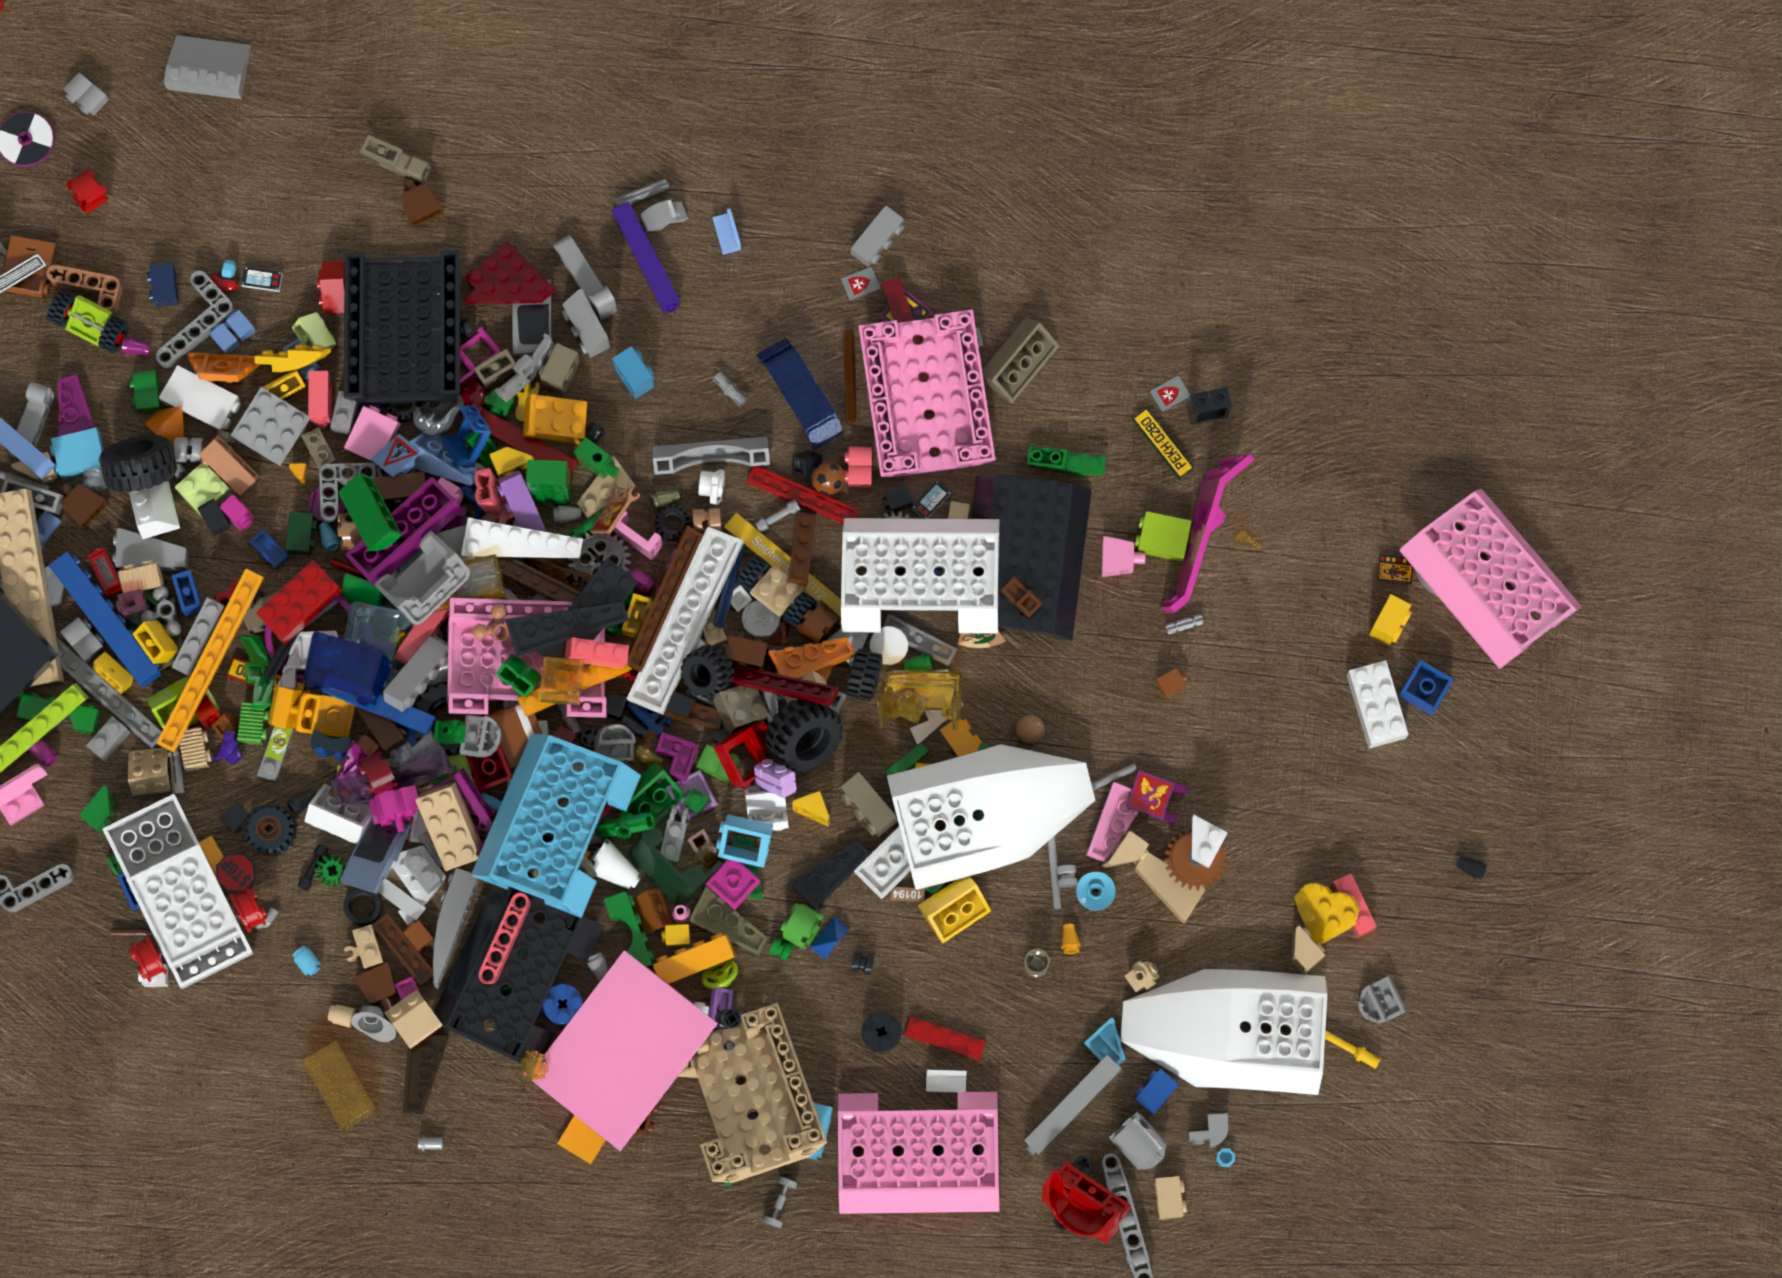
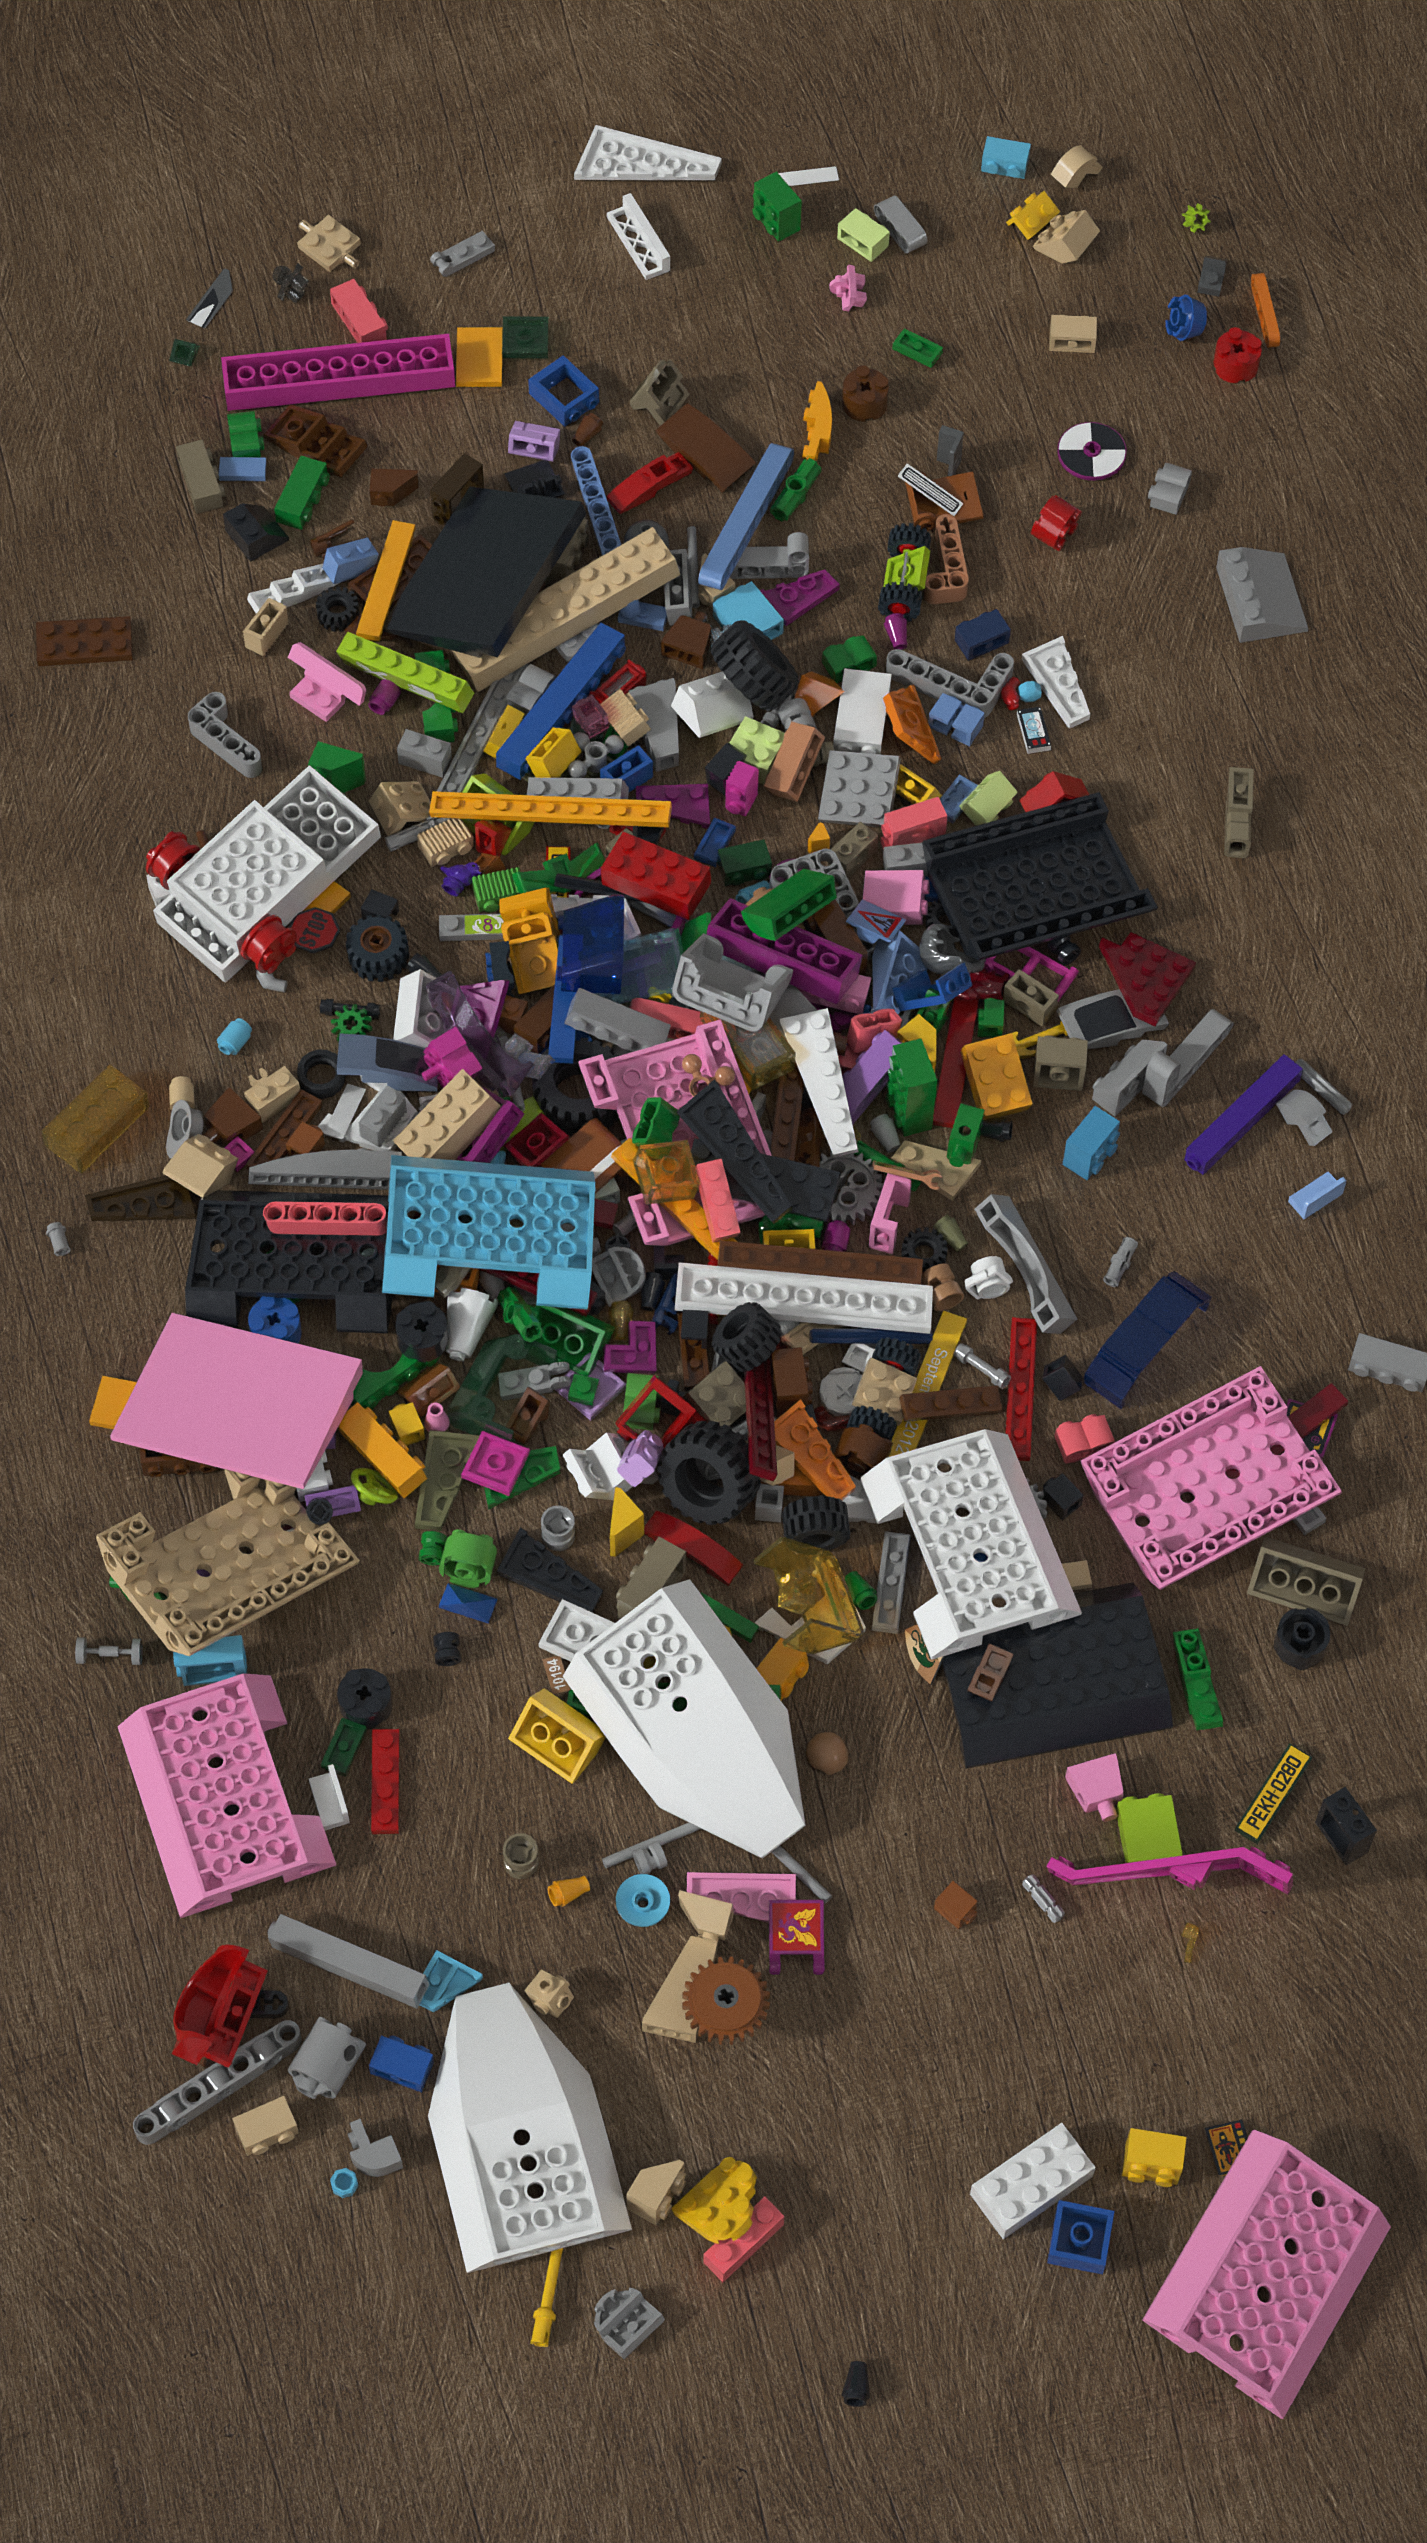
camera: 70 degrees right, 15 degrees down
(221, 245) = (1053, 670): none -> white wing
(223, 564) = (688, 801): none -> magenta wing
(292, 358) = (949, 783): yellow slope -> none
(377, 773) = (478, 1016): dark red brick -> none
(420, 203) = (1197, 856): reddish brown torso -> none
(450, 732) = (558, 1078): green brick -> none
(481, 736) = (566, 1113): light grey slope -> none
(526, 370) = (1041, 1024): light grey plate -> none
(534, 1065) = (185, 1310): clear yellow head -> none
(598, 965) = (342, 1345): light grey cone -> none
(625, 906) = (422, 1331): none -> black brick
(747, 827) = (567, 1463): medium azure window -> none
(799, 855) = (558, 1528): none -> light grey wheel
(828, 477) = (1053, 1403): dark orange piece -> none
(843, 766) = (698, 1546): none -> red slope
(849, 378) = (1189, 1393): reddish brown axle -> none
(860, 283) = (1322, 1366): light grey sticker -> none
(891, 644) = (869, 1547): white tile -> none
(910, 1059) = (344, 1746): none -> dark green plate
(931, 500) = (1078, 1538): tile -> none
(1066, 370) = (1289, 1634): none -> black brick
(1170, 393) = (1340, 1775): light grey sticker -> none
(1205, 841) = (750, 1999): white wing -> none

